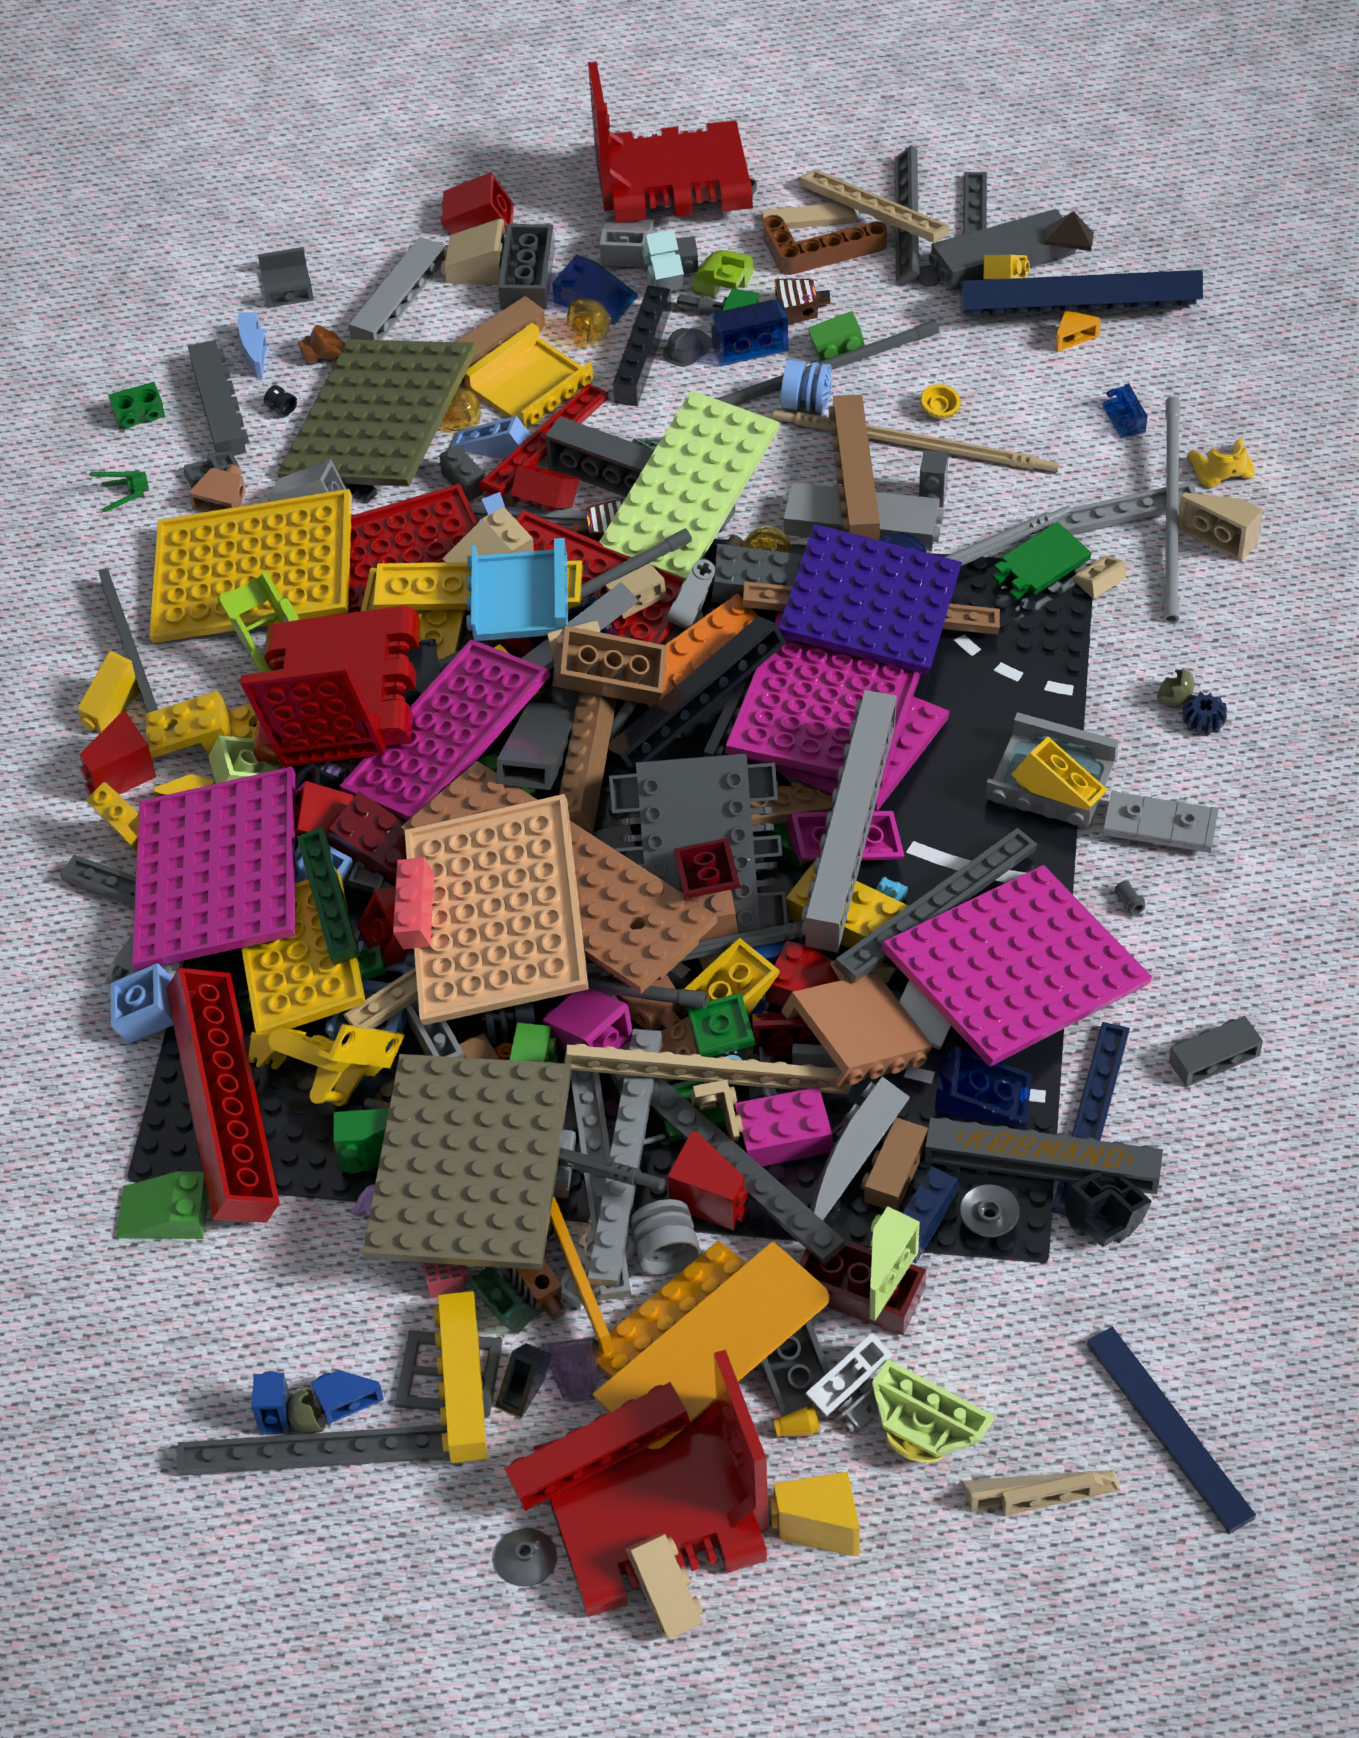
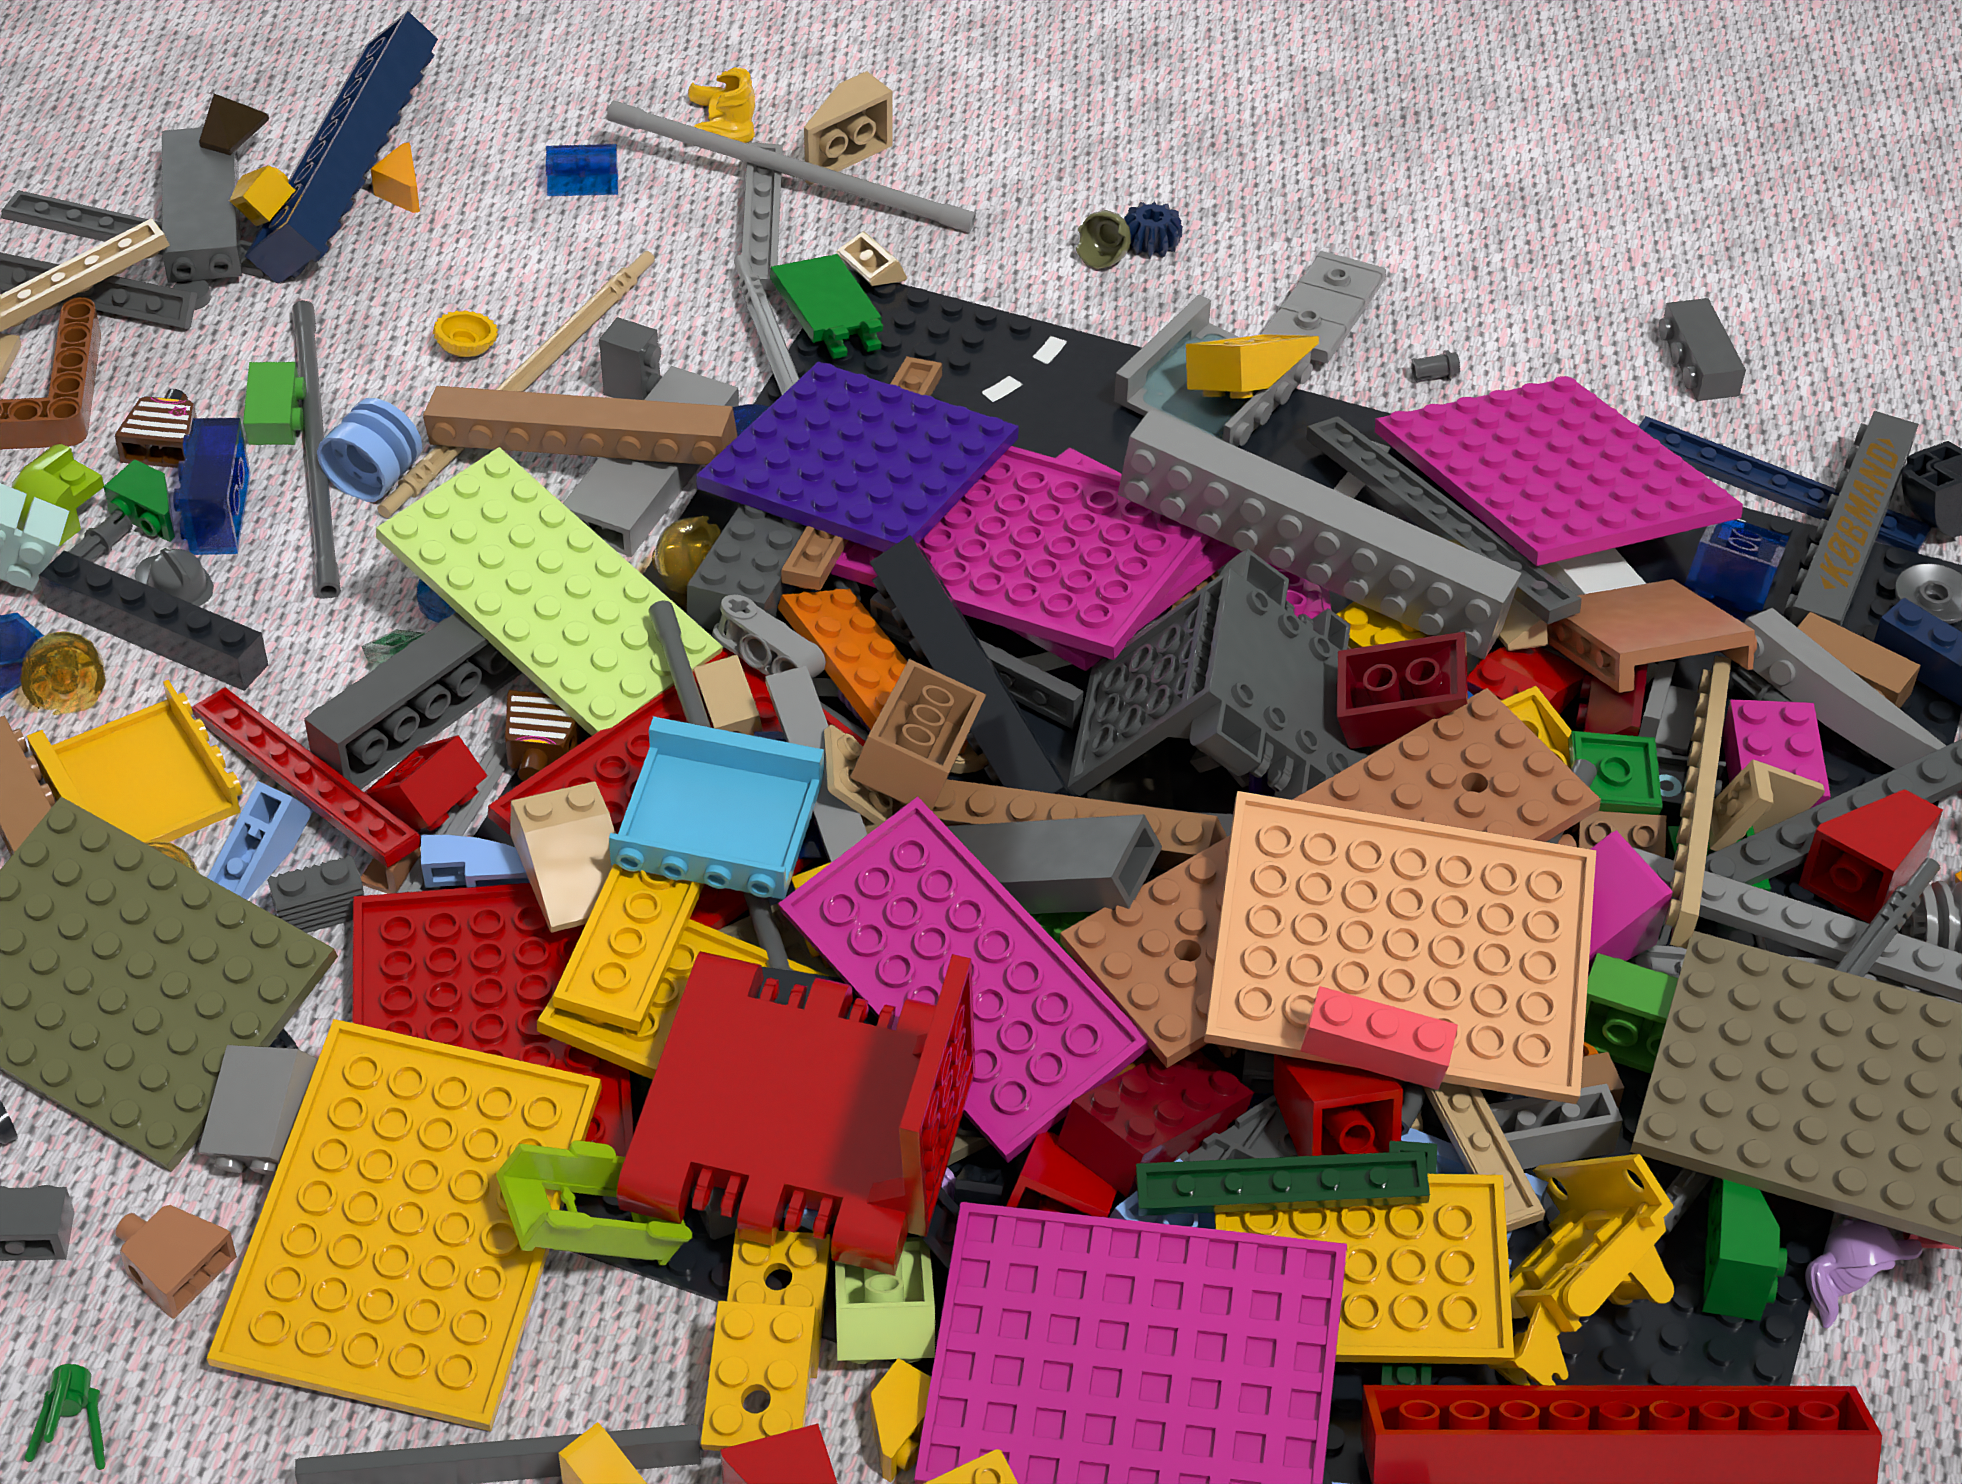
camera: 80 degrees left, 5 degrees down
(218, 460) = (93, 1269): dark grey slope -> none

